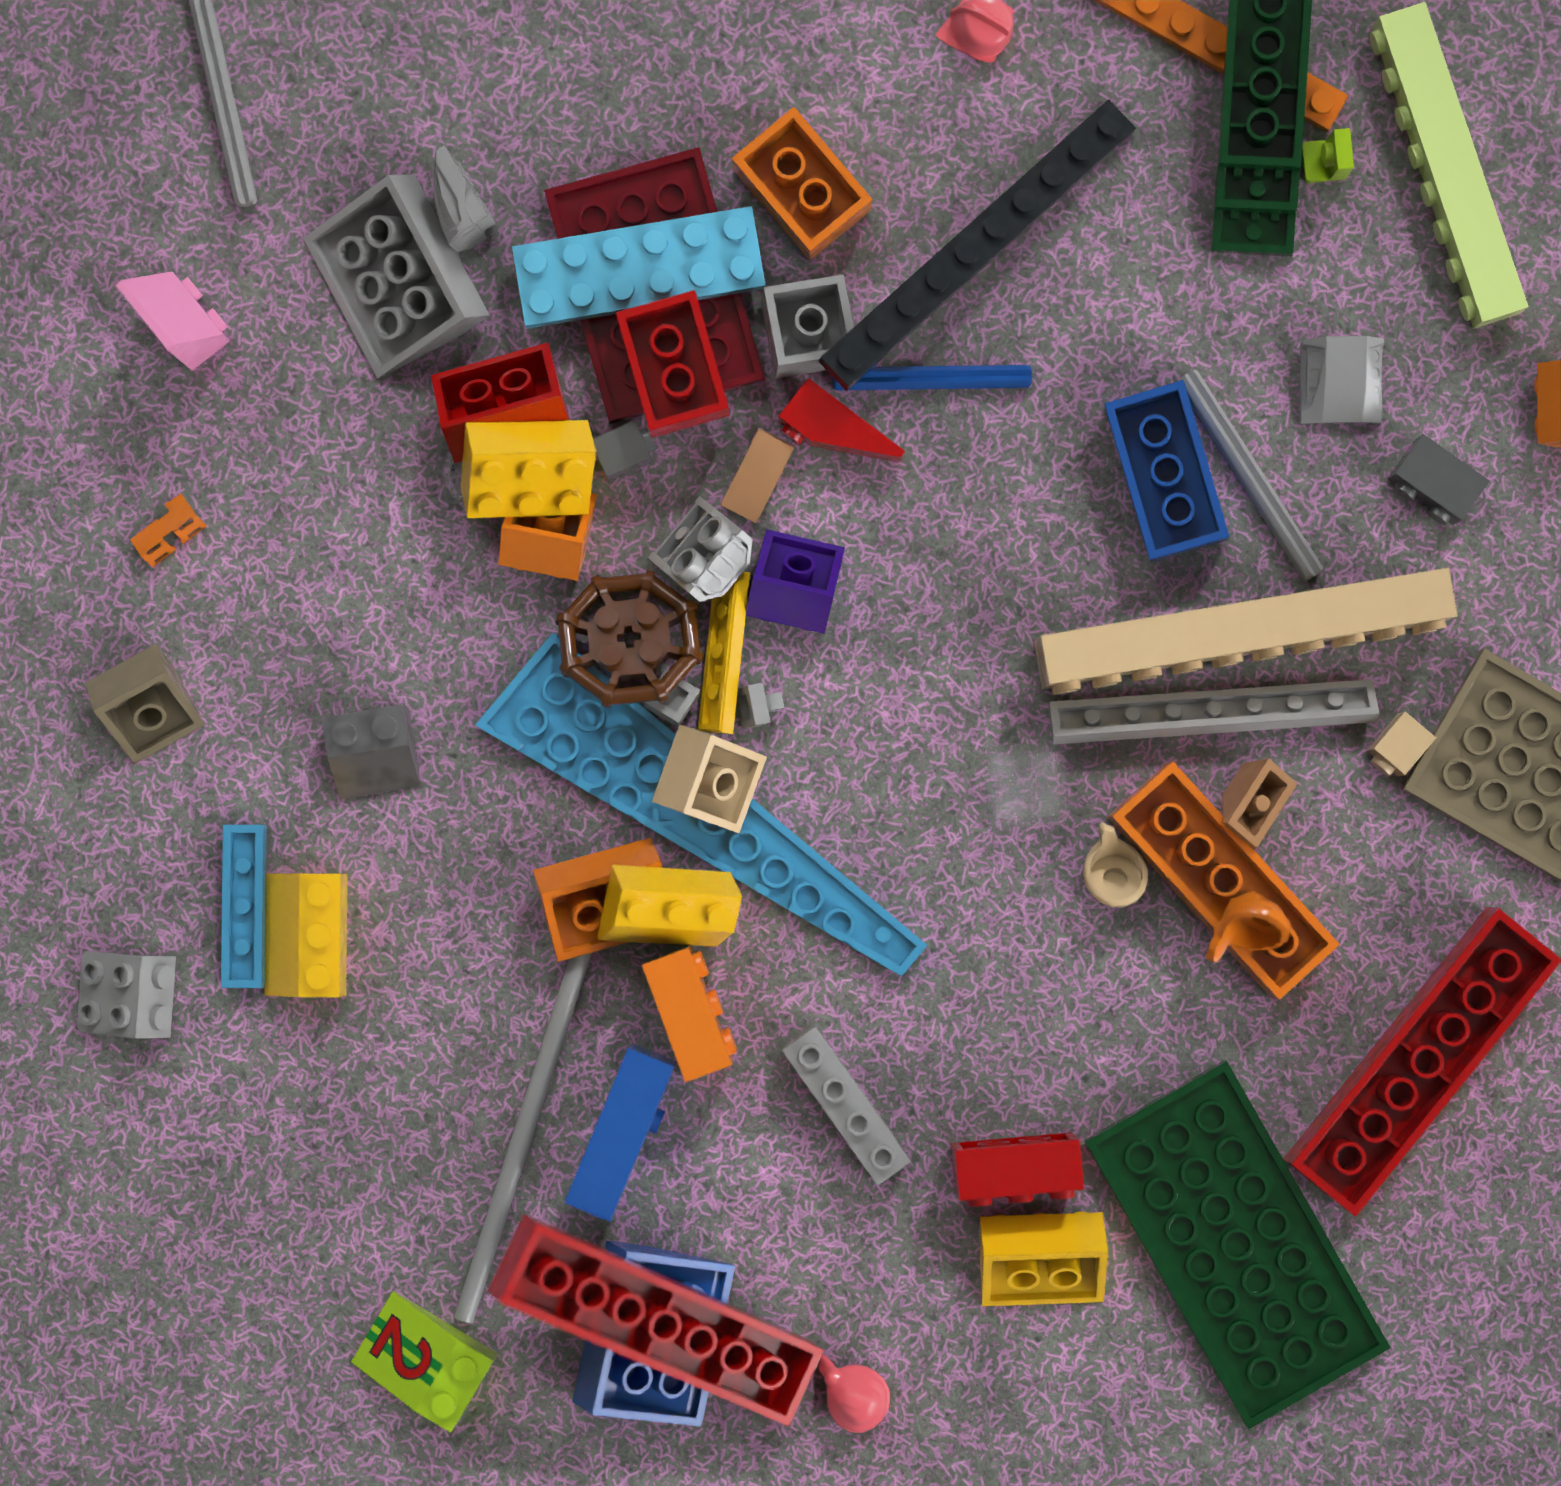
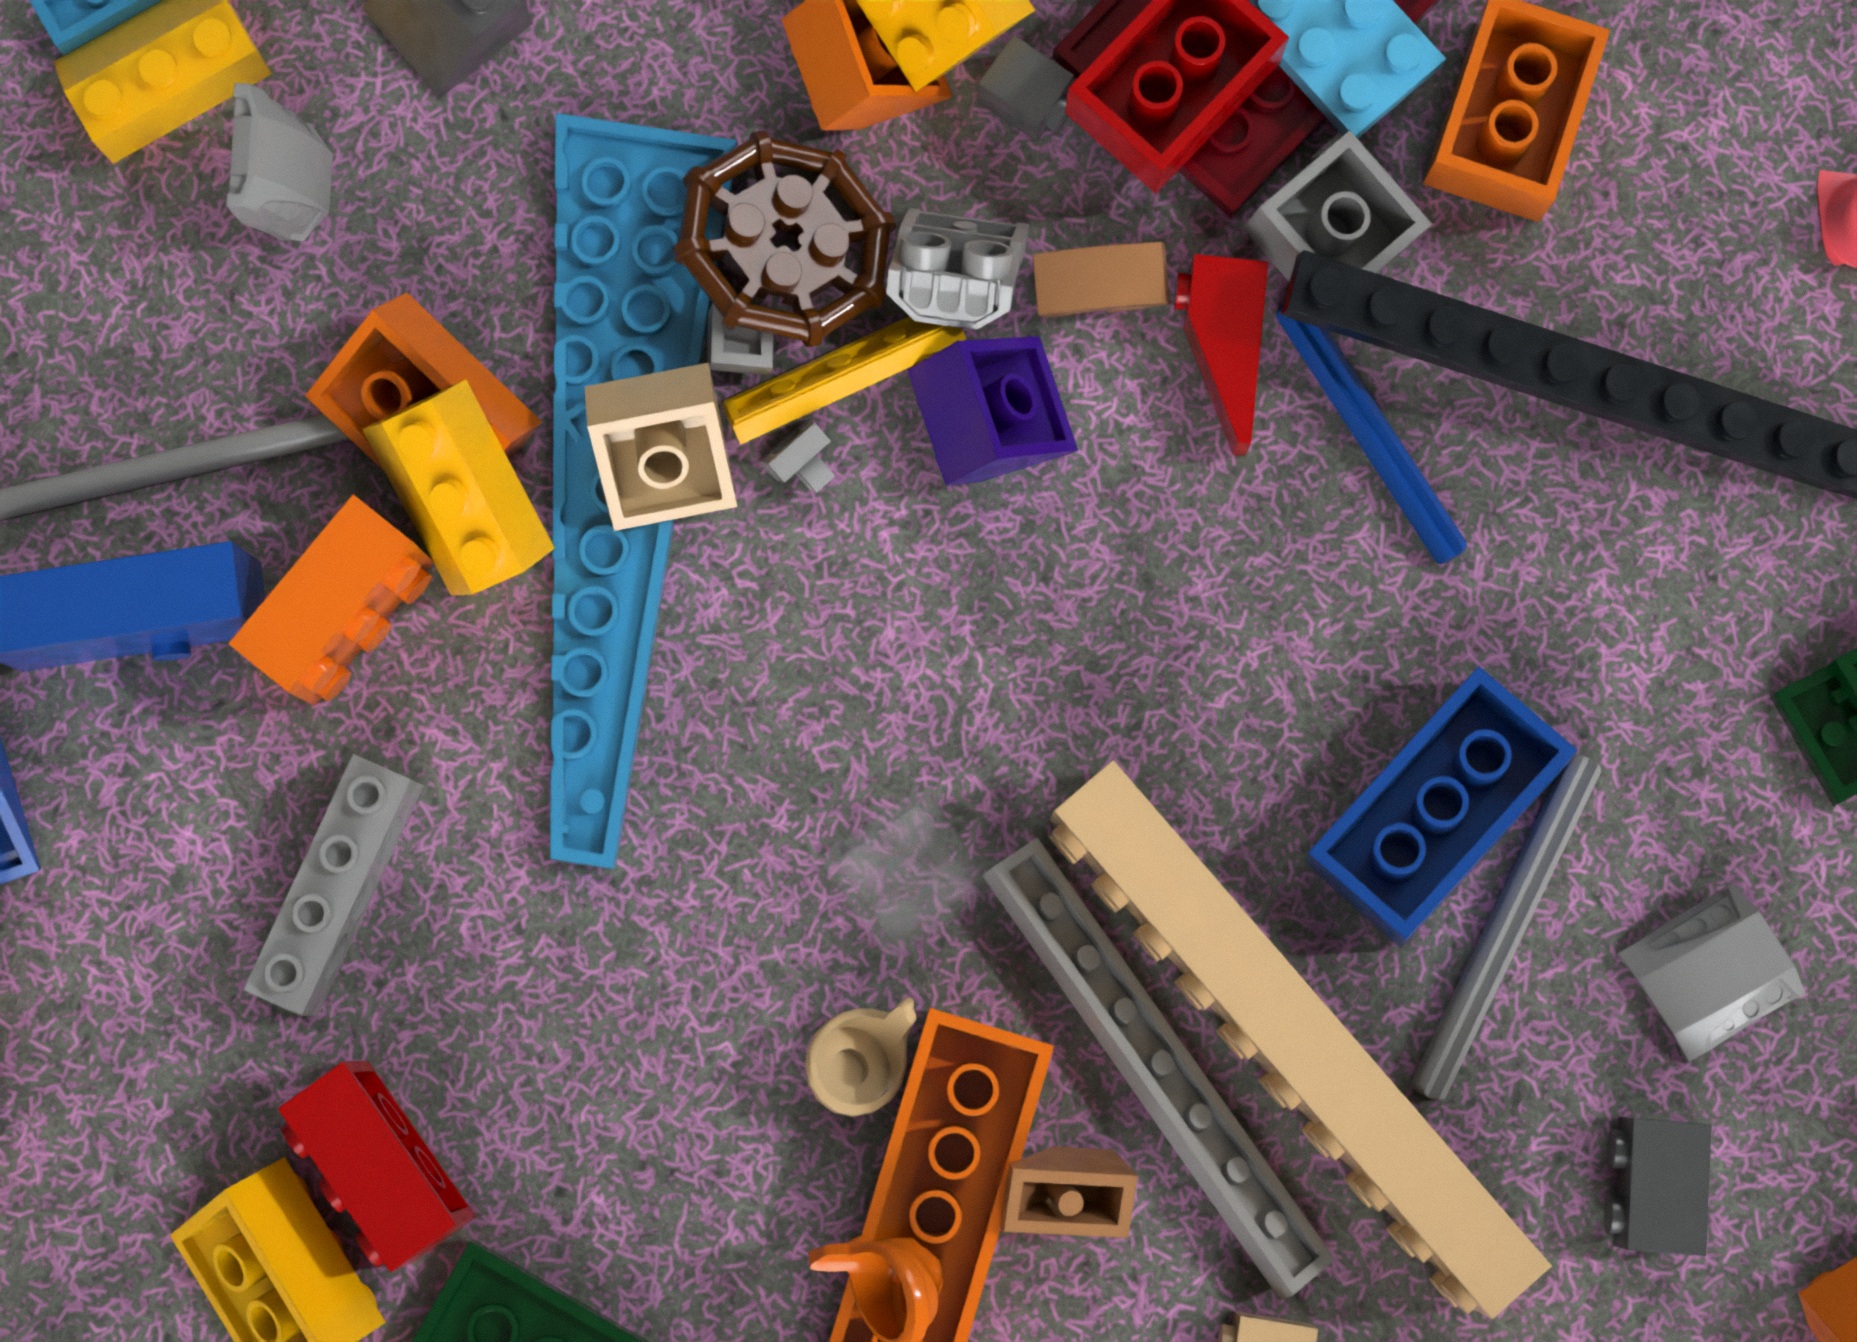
camera: 60 degrees right, 5 degrees down
(415, 900) = (276, 168): none -> light grey slope

